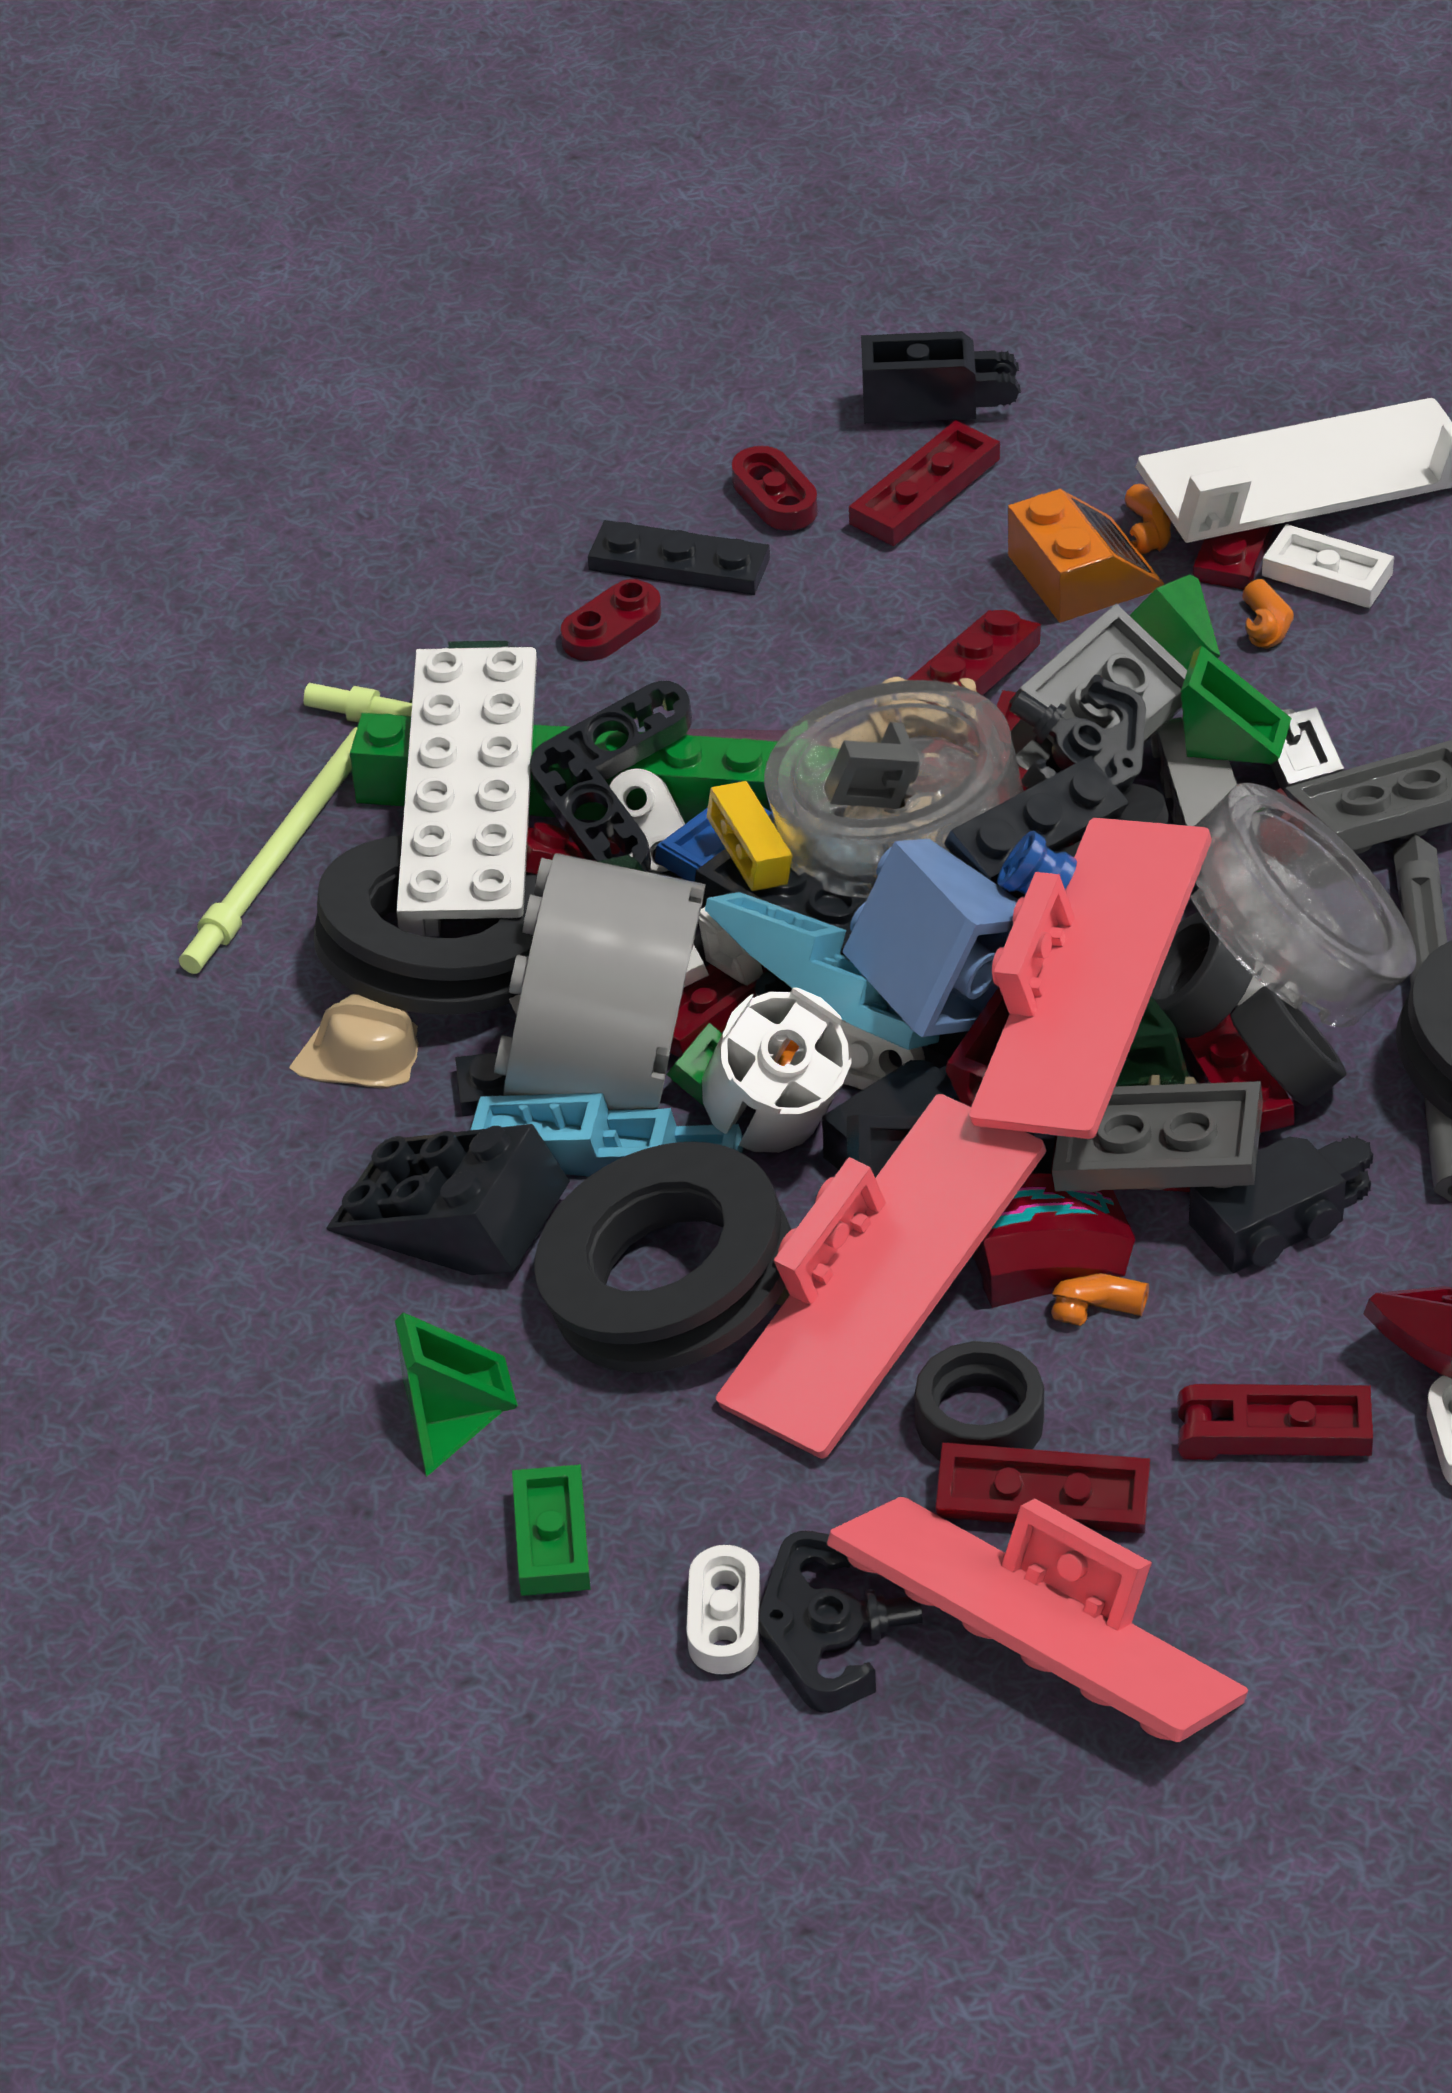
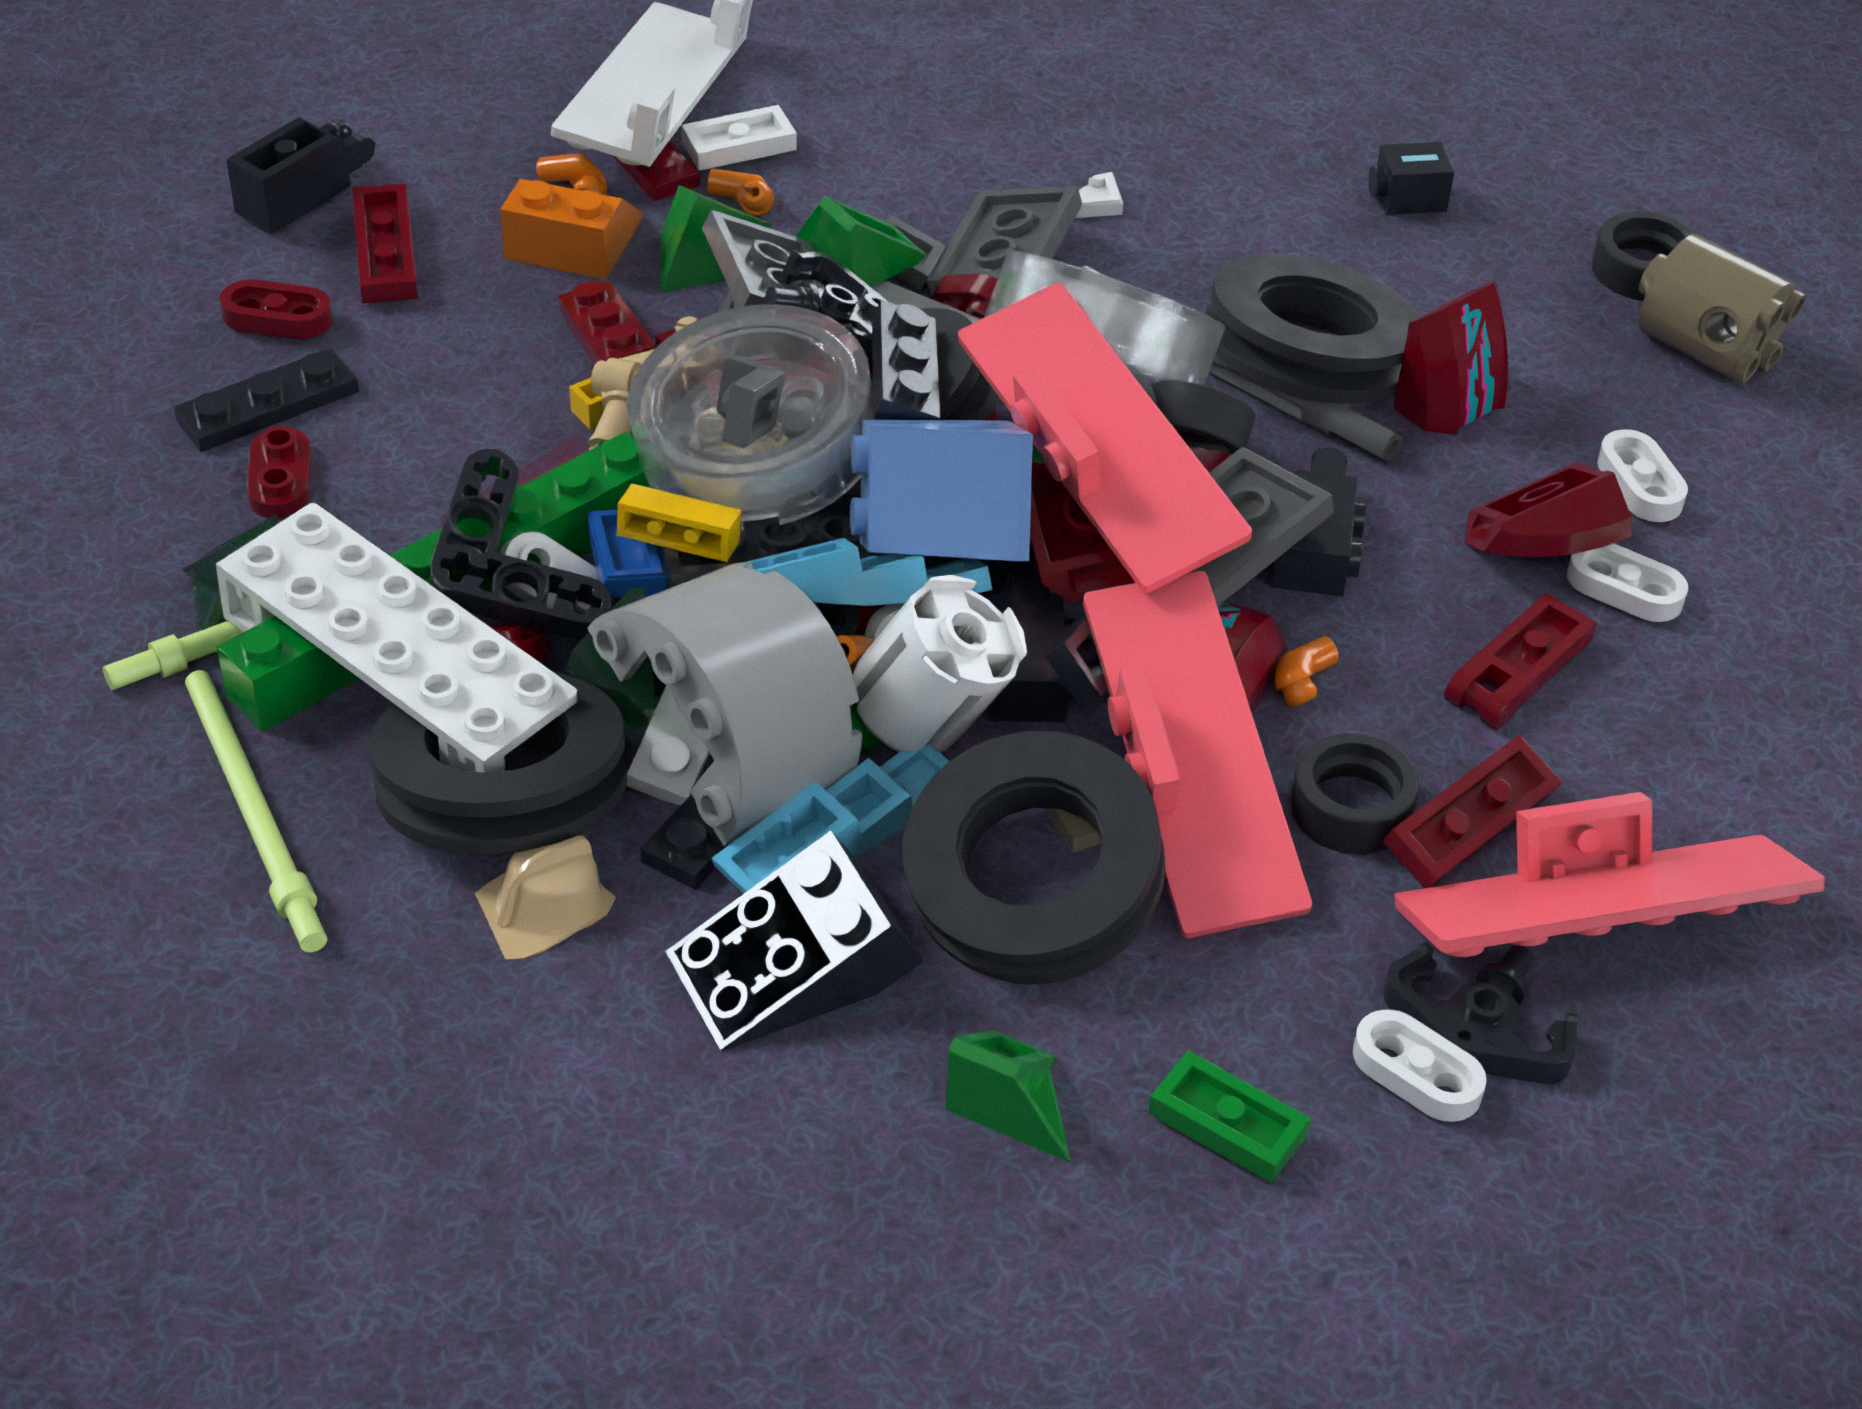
camera: 55 degrees left, 0 degrees up
(1034, 856) = (973, 389): blue wheel -> none

